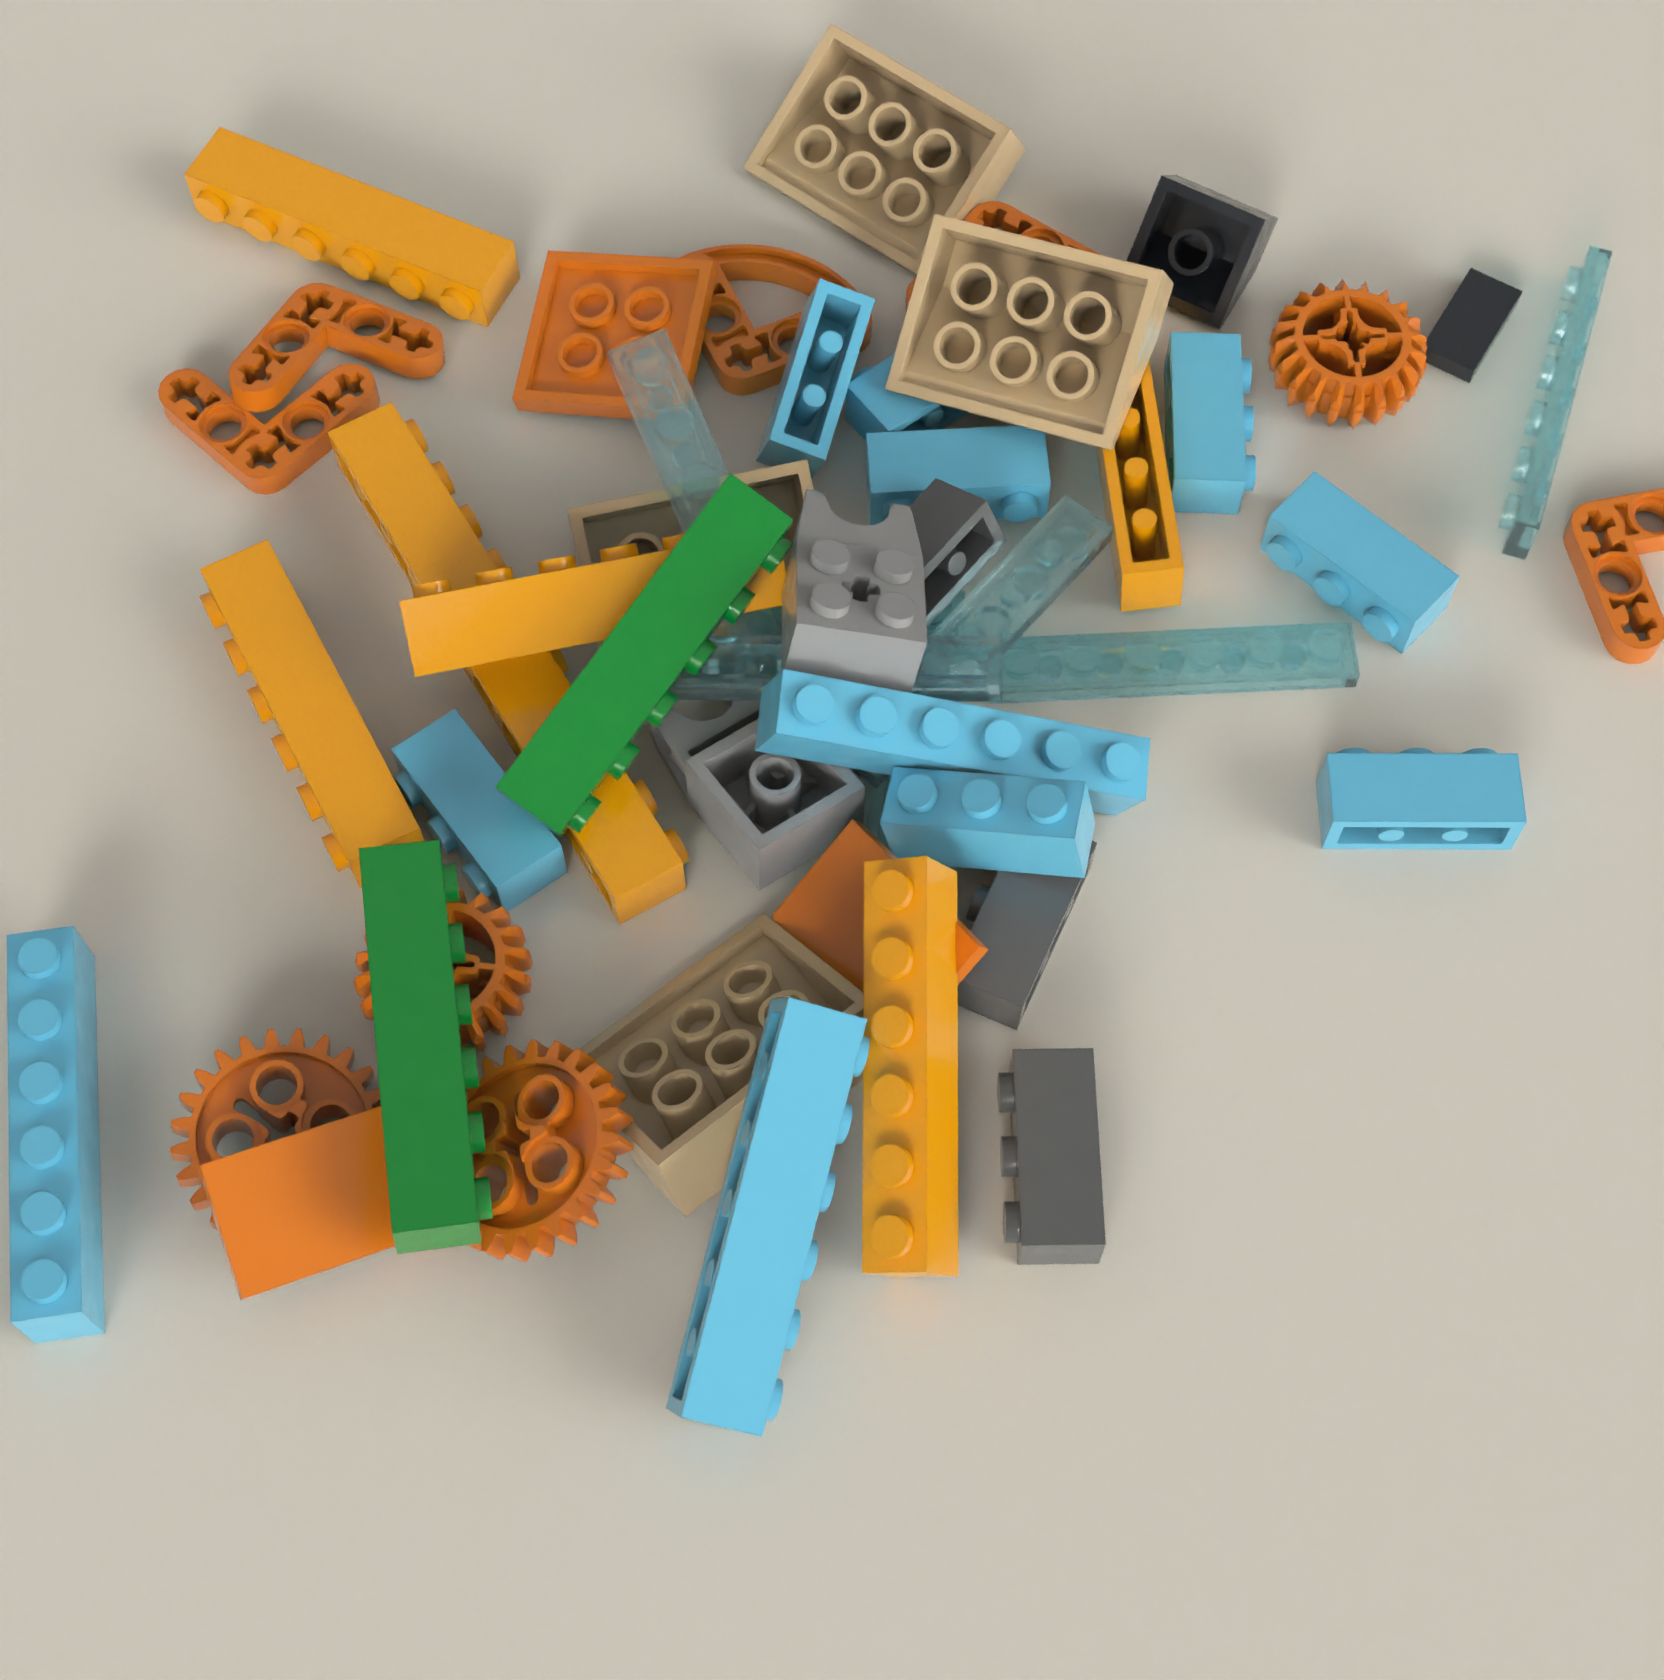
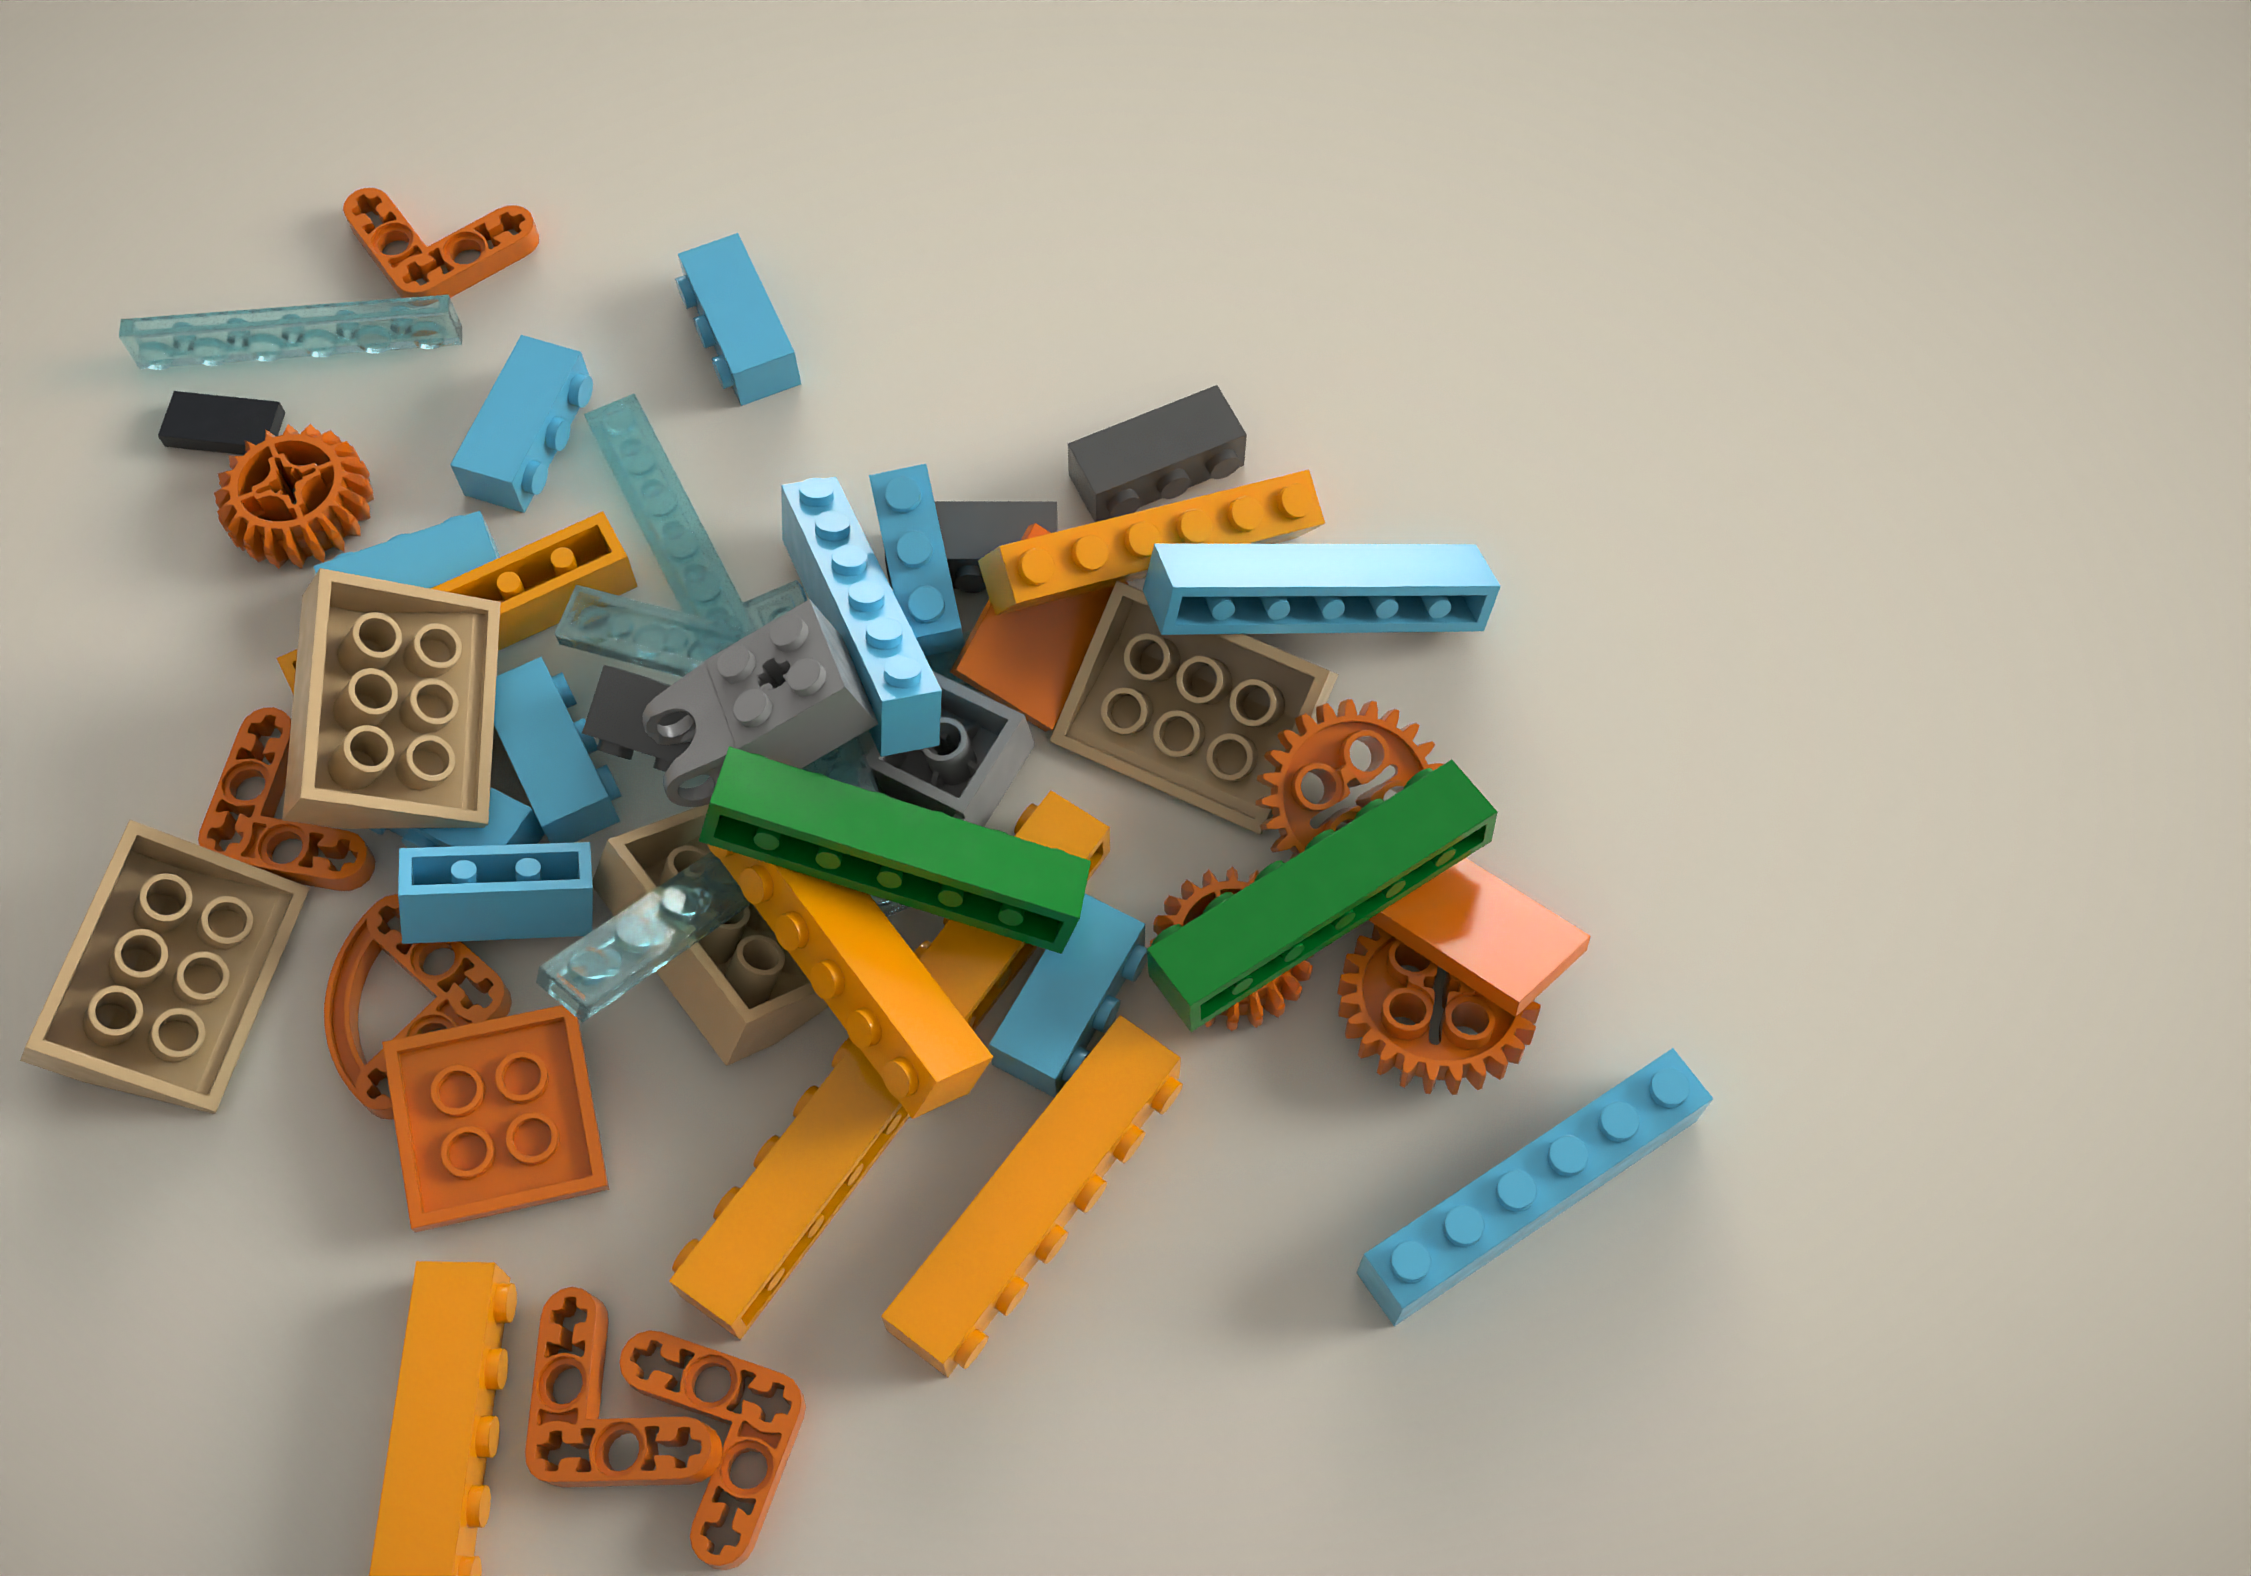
camera: 115 degrees left, 0 degrees up
(1203, 245) = (205, 649): black slope -> none

